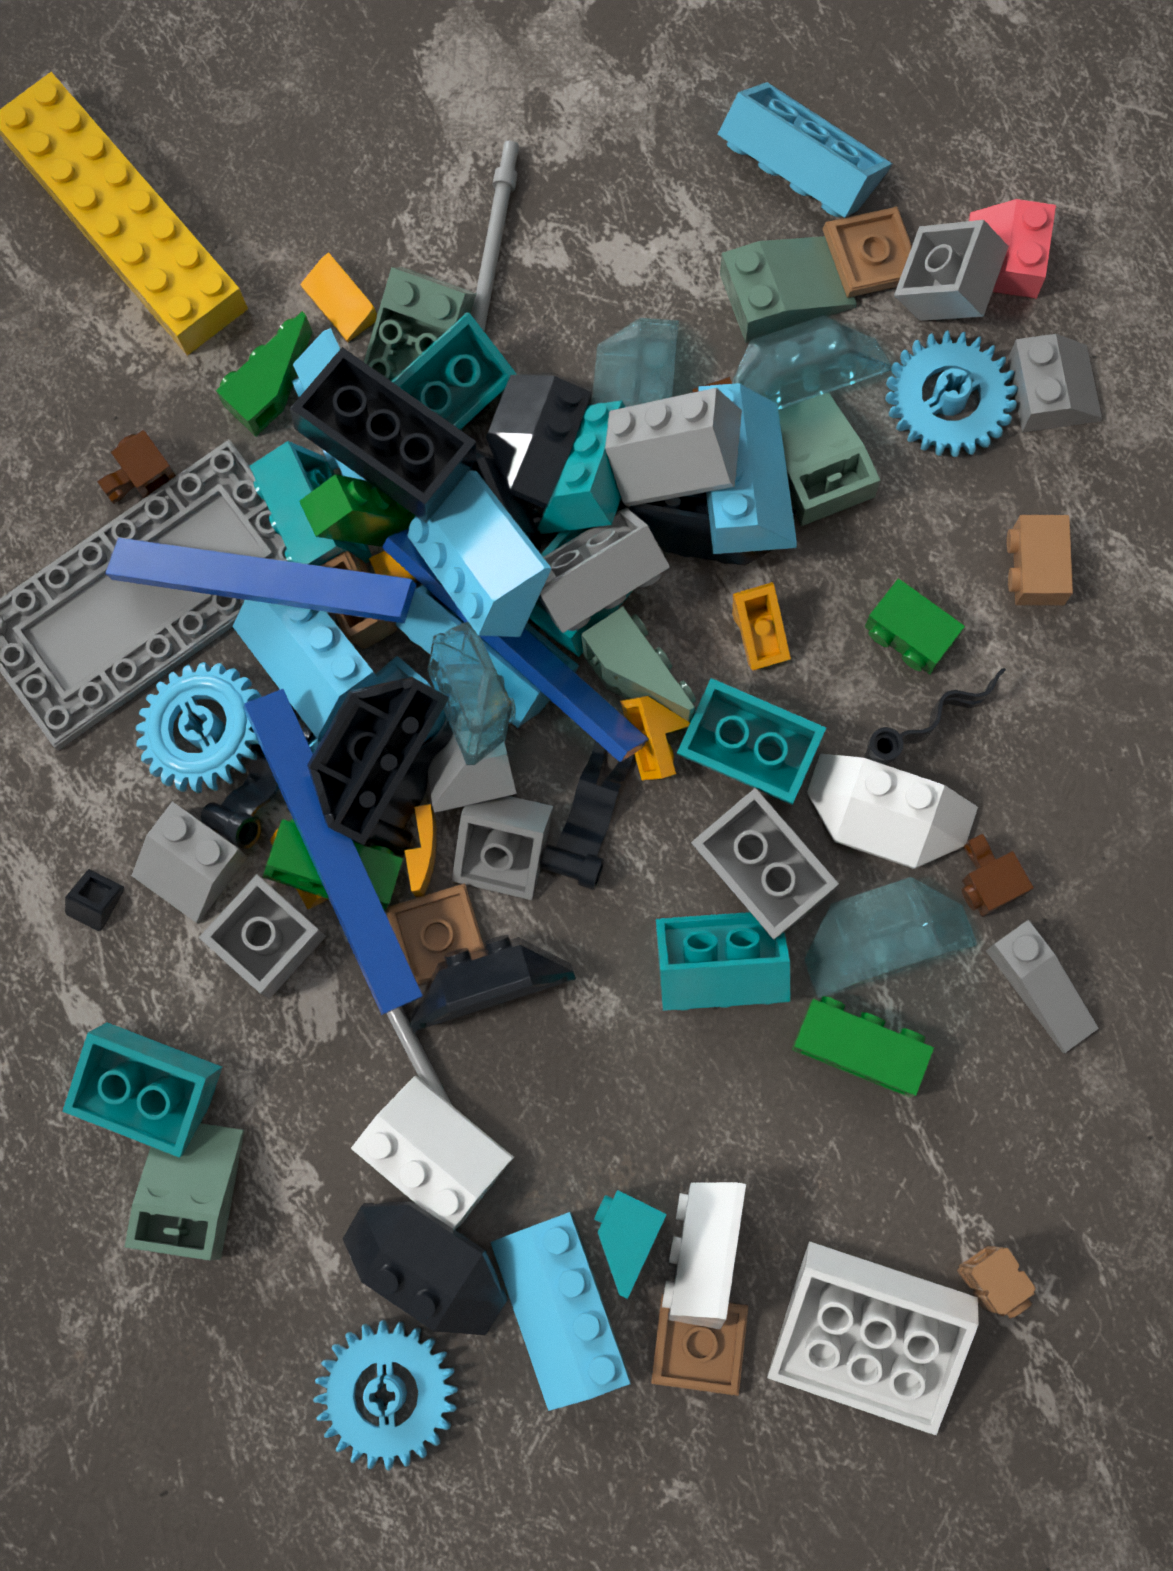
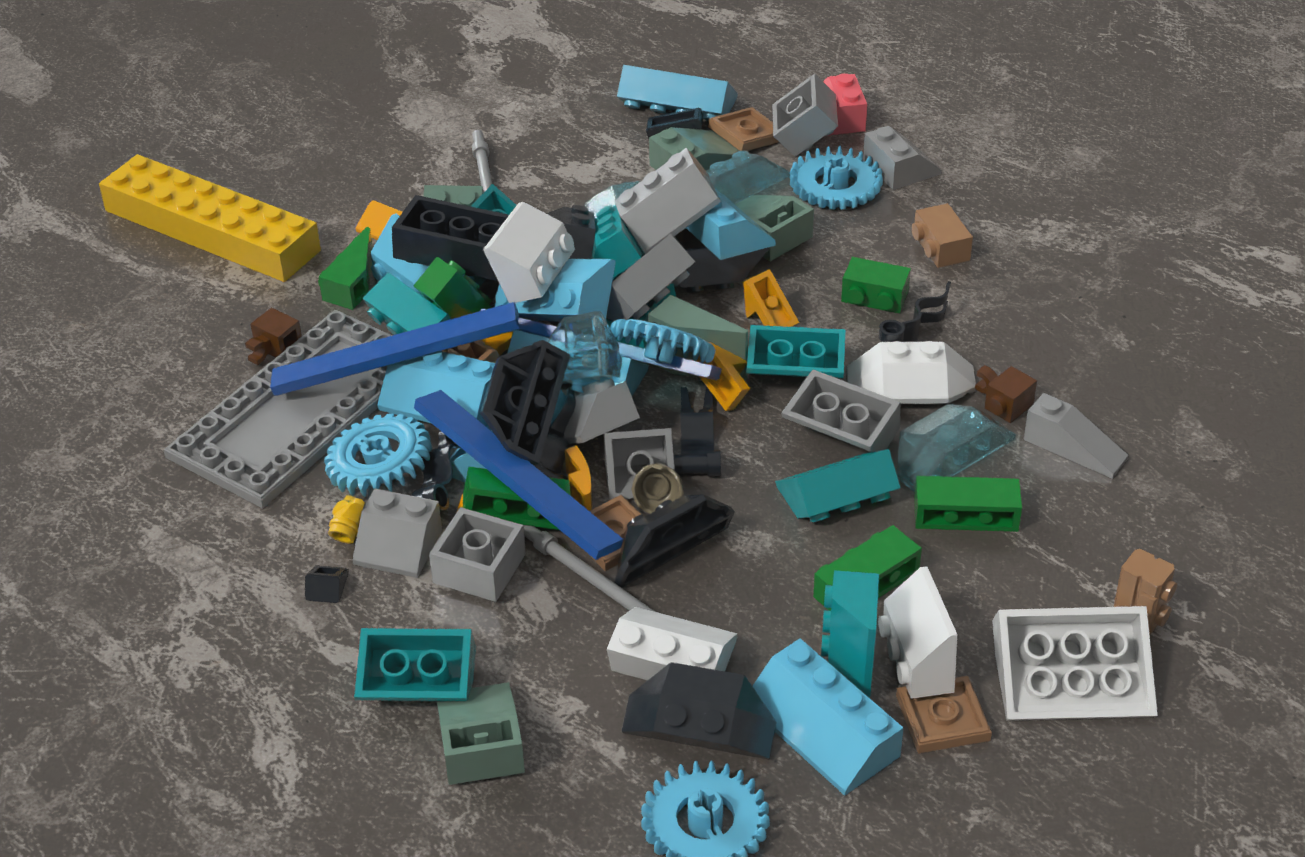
camera: 25 degrees left, 35 degrees down
(139, 815) = (346, 519): none -> yellow animal
(449, 511) = (528, 252): none -> white slope
(505, 904) = (655, 485): none -> dark tan hair
(533, 680) = (662, 337): none -> medium azure gear
(697, 1113) = (885, 553): none -> green brick
(778, 211) = (683, 119): none -> black tile

